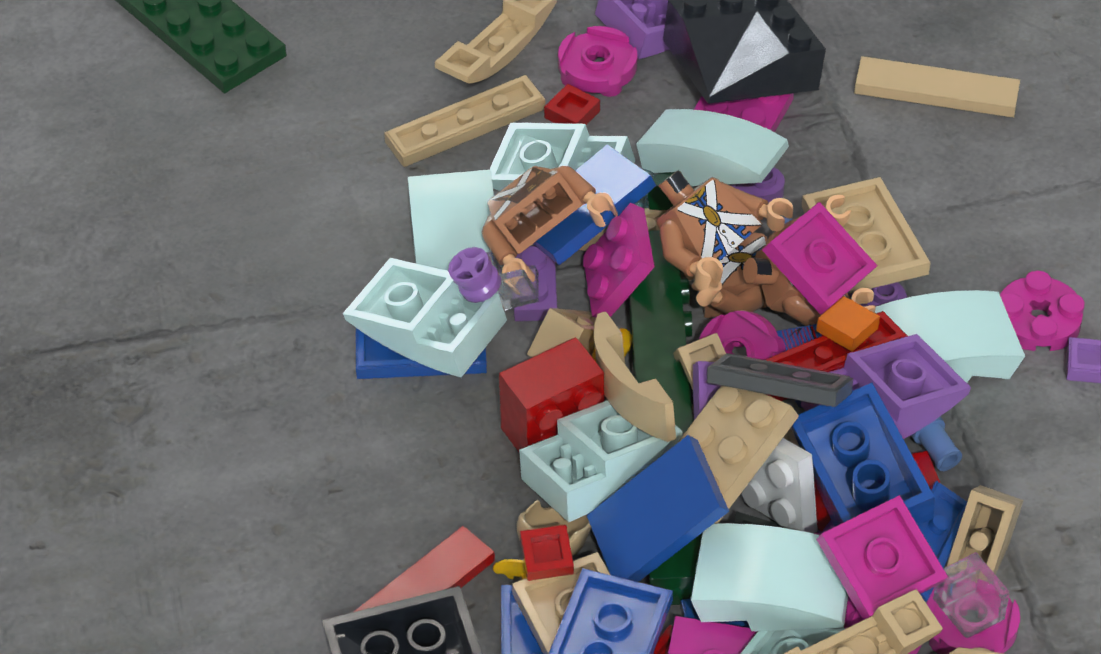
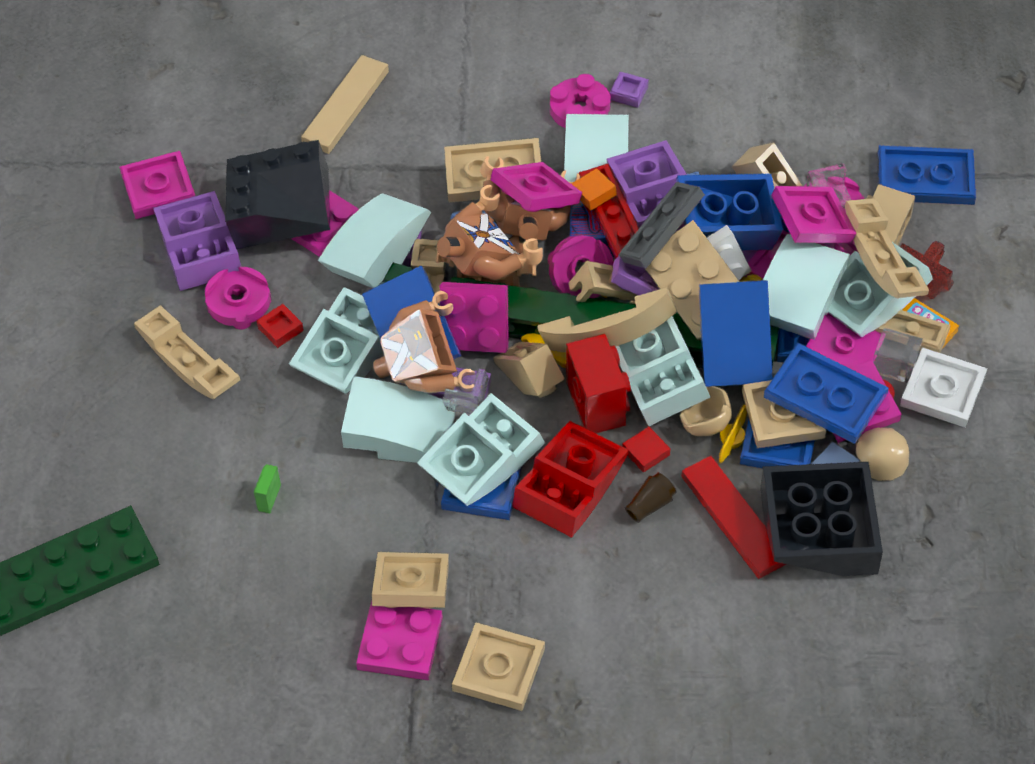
camera: 75 degrees left, 5 degrees up
(140, 401) = (498, 666): none -> tan plate
(164, 310) = (400, 641): none -> dark pink plate
(233, 292) = (410, 580): none -> tan plate
(332, 146) = (267, 488): none -> bright green tile
(416, 502) = (651, 496): none -> dark brown cone
(421, 415) = (569, 478): none -> red slope
(464, 120) = (264, 399): tan tile -> none
(474, 274) = (473, 391): medium lavender wheel -> none
(490, 487) = (646, 449): none -> red tile
(546, 552) = (743, 410): red tile -> none

